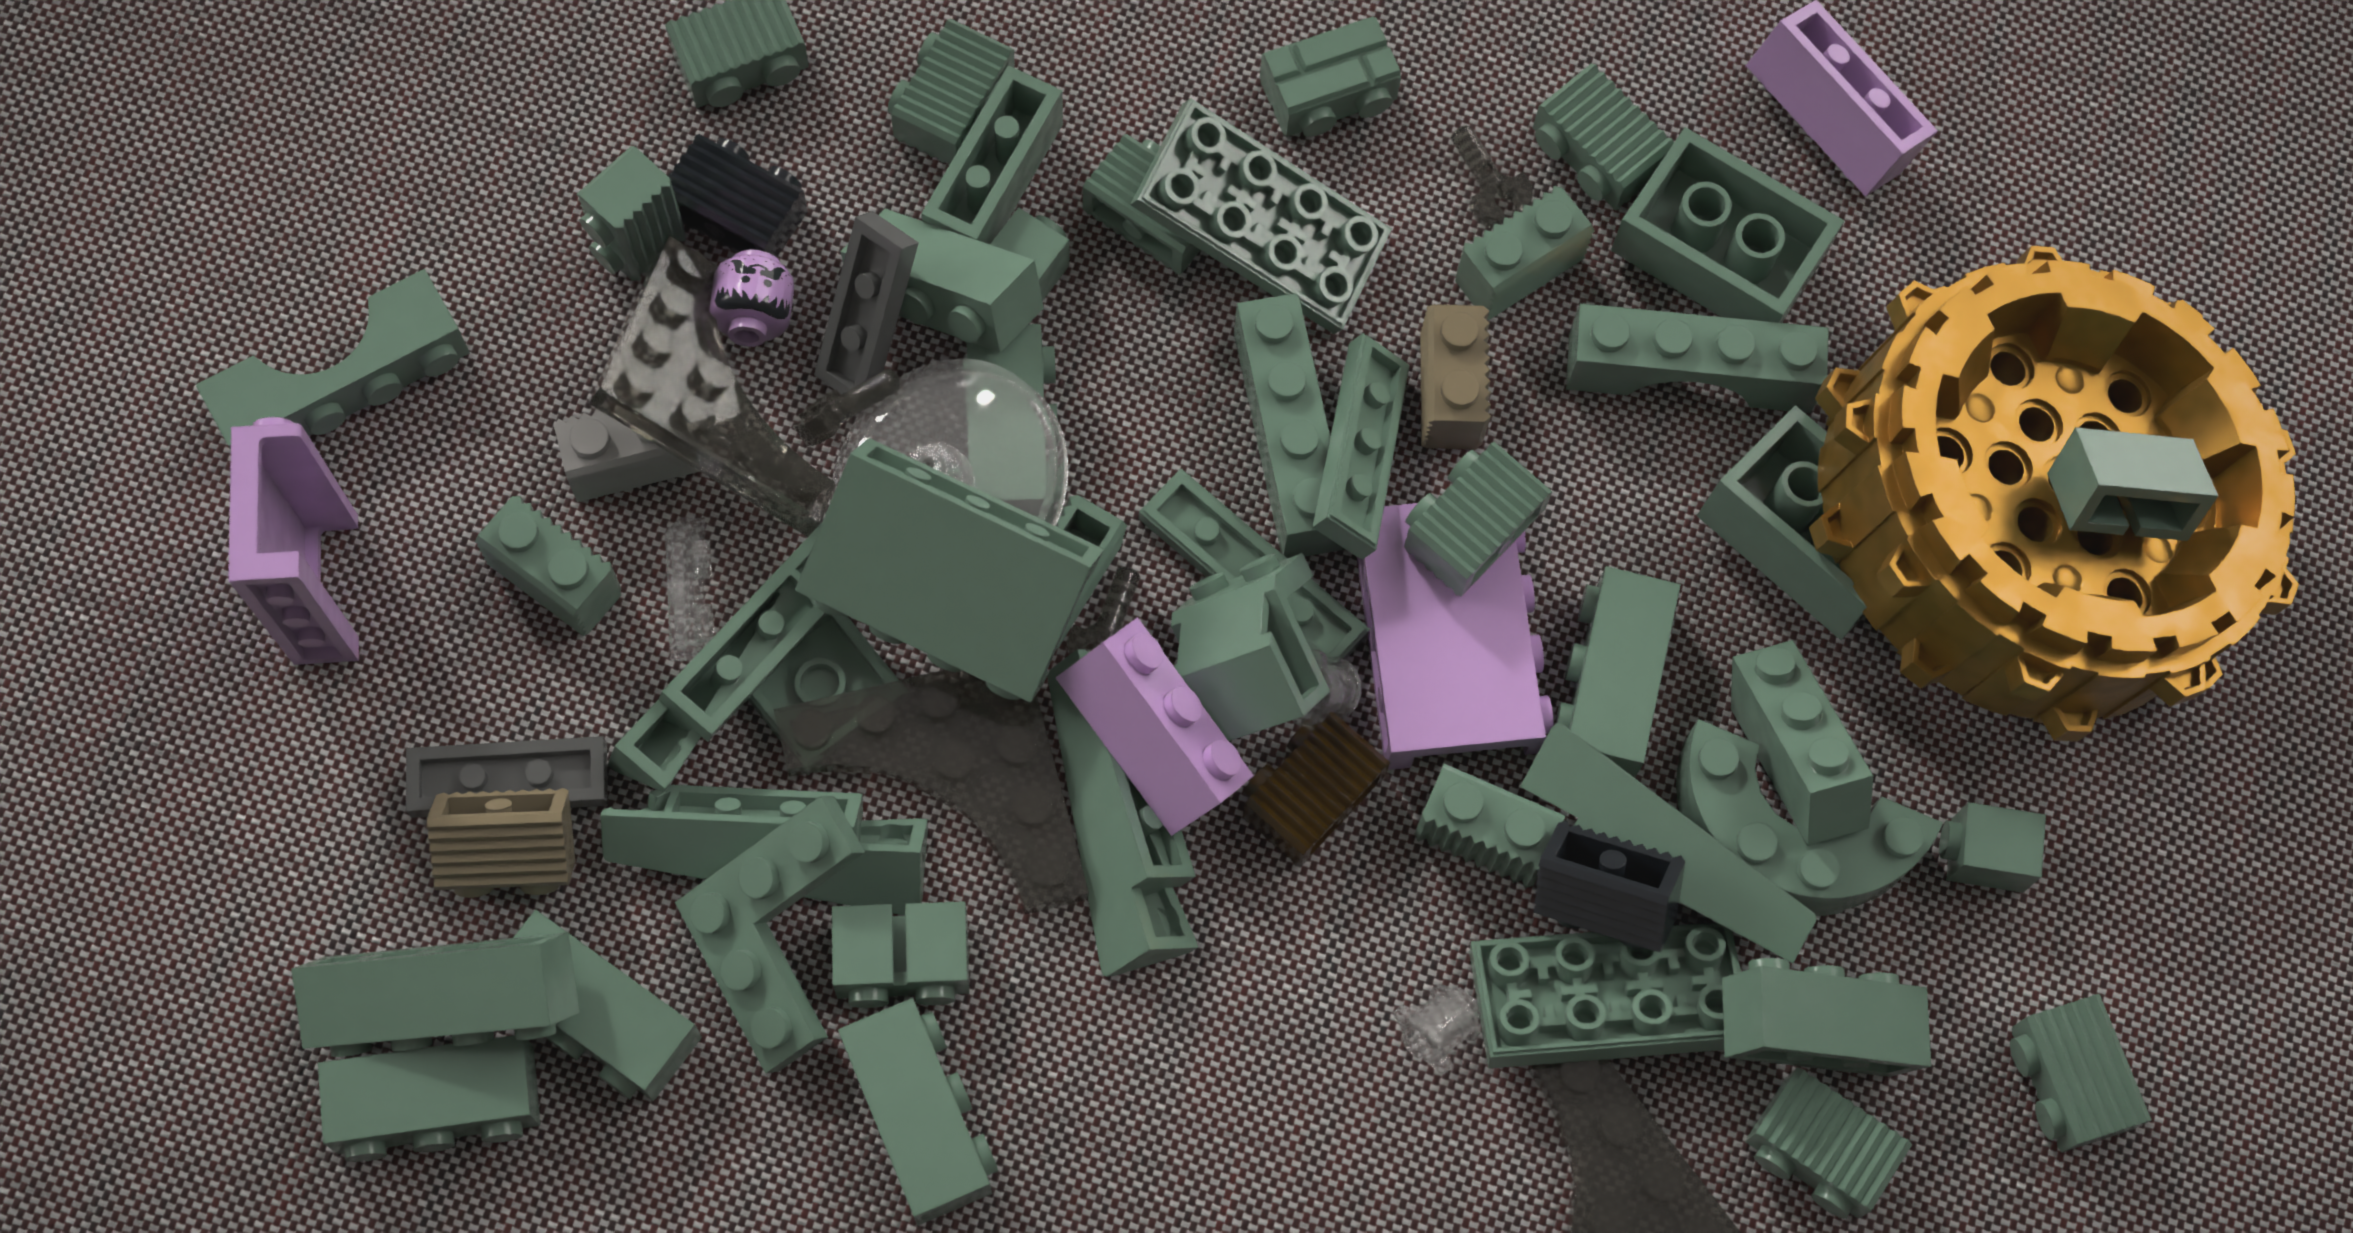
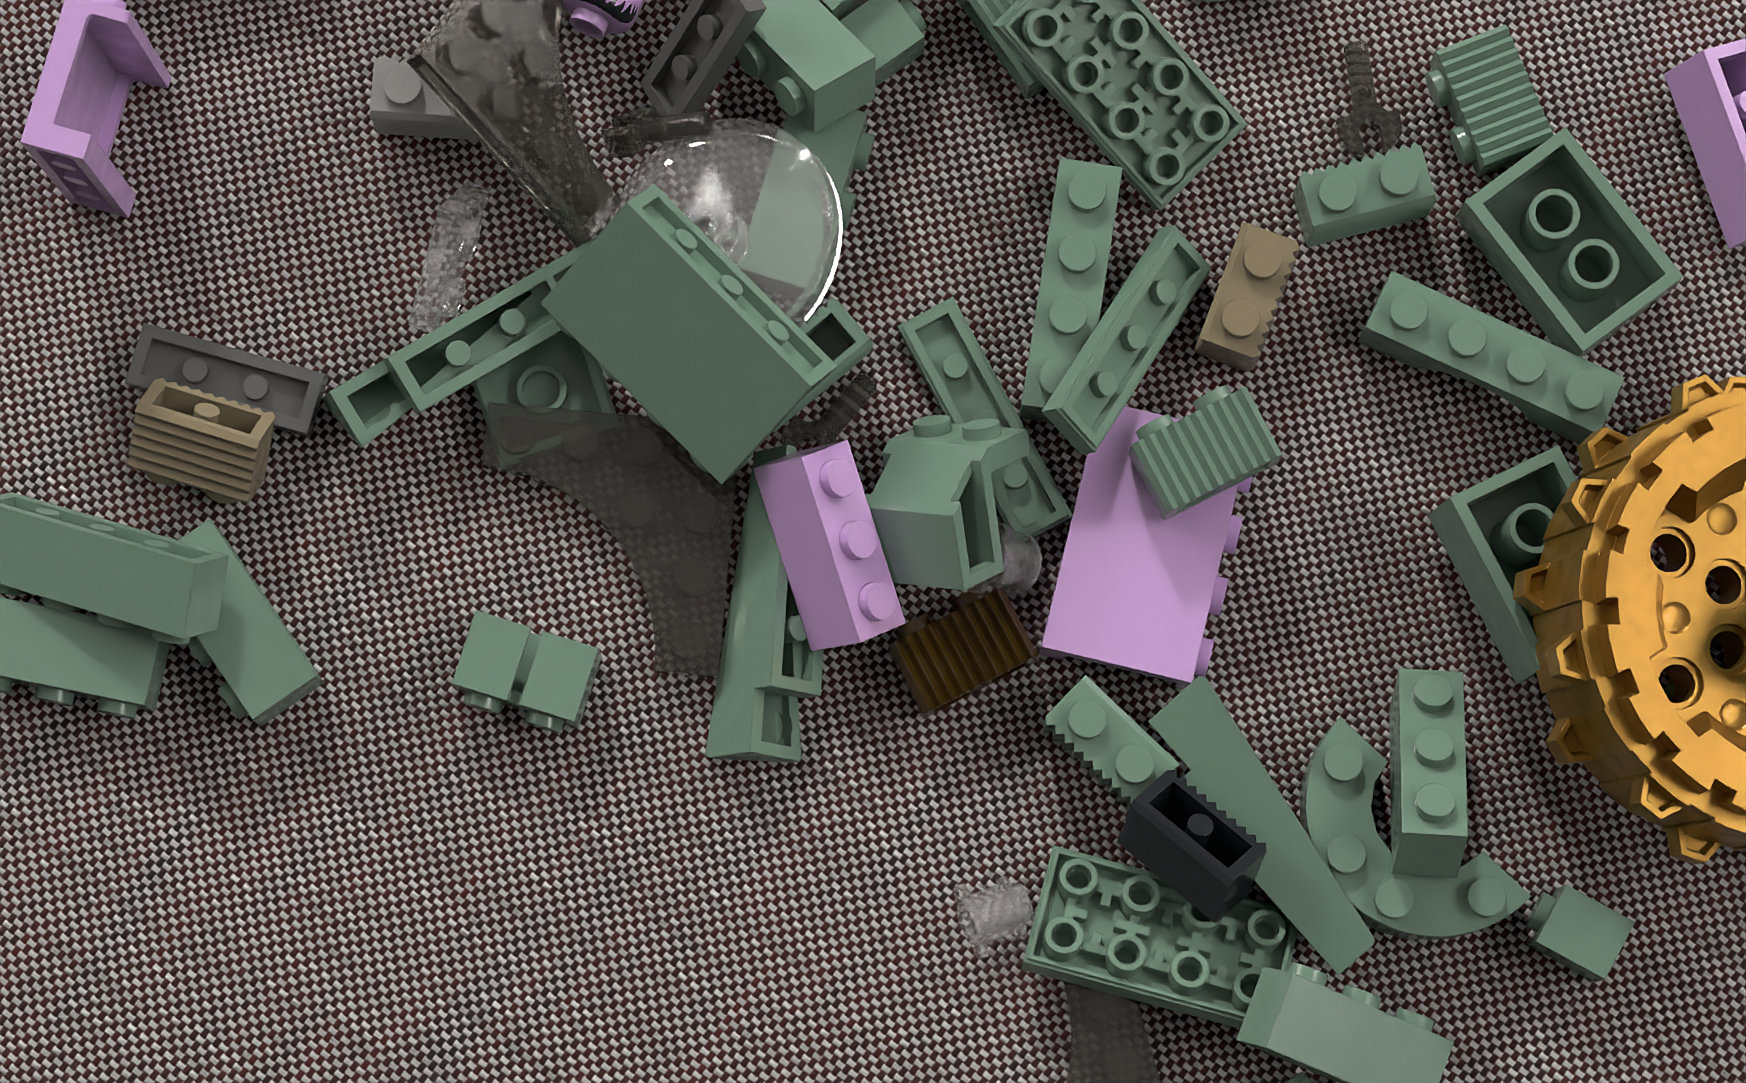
camera: 25 degrees right, 10 degrees up
(549, 565) = (329, 191): sand green brick -> none
(706, 827) = (450, 527): sand green wedge -> none
(731, 927) = (381, 595): sand green plate -> none
(919, 1110) = (491, 821): sand green brick -> none
(1619, 664) = (1290, 638): sand green brick -> none

